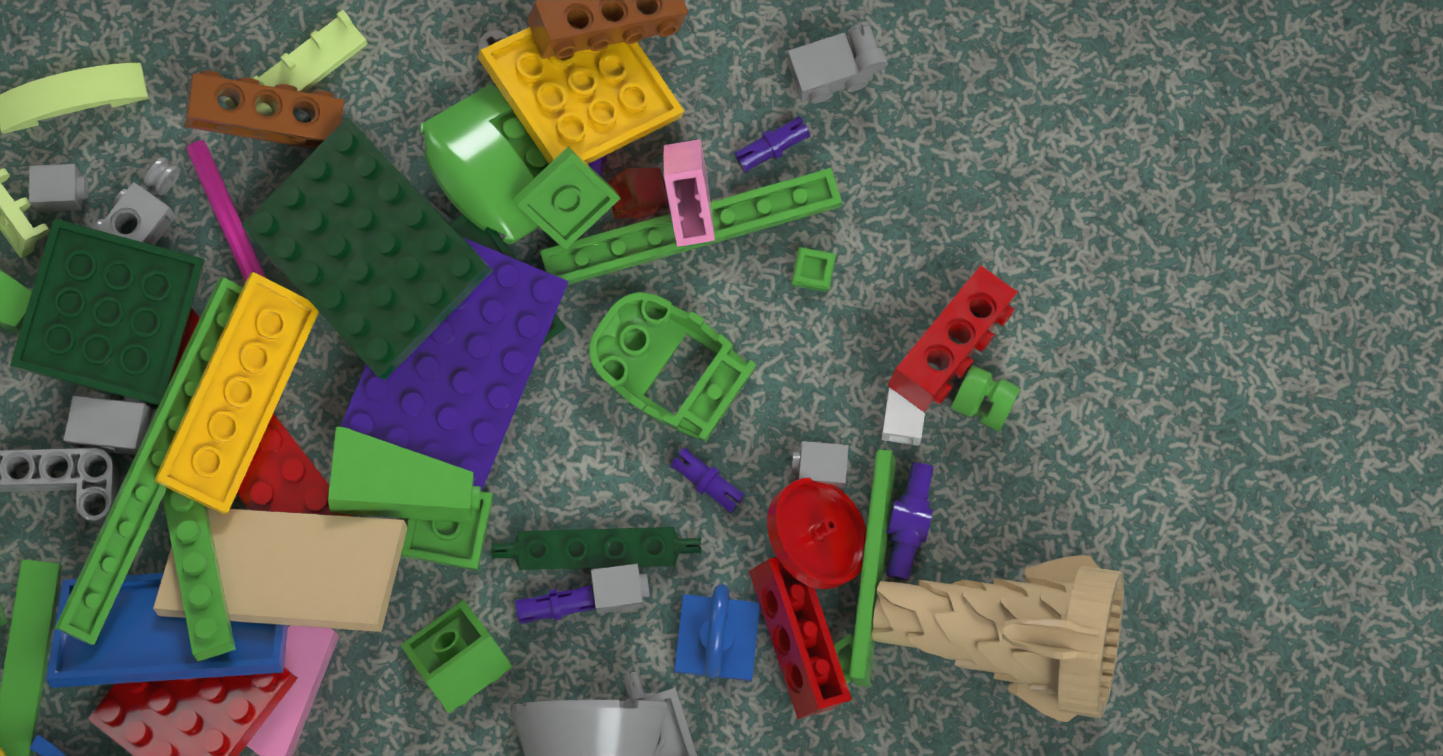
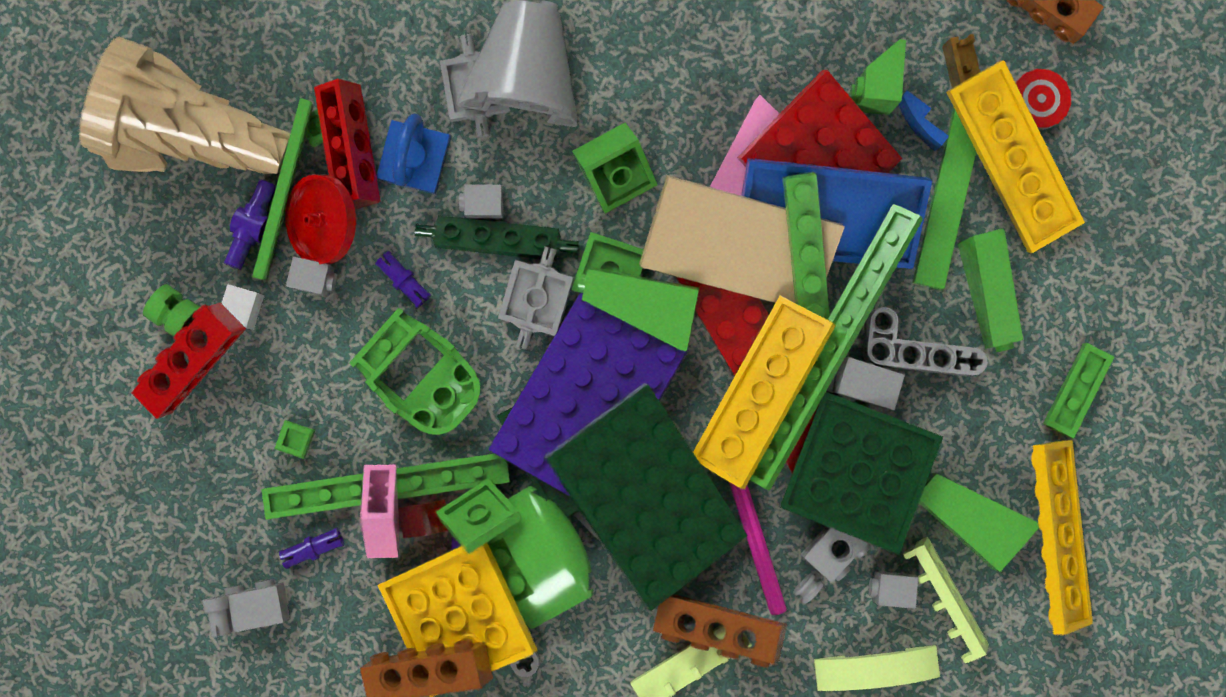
camera: 175 degrees left, 10 degrees up
(535, 477) = (536, 297): none -> light grey plate
(555, 604) = (533, 198): dark purple pin -> none

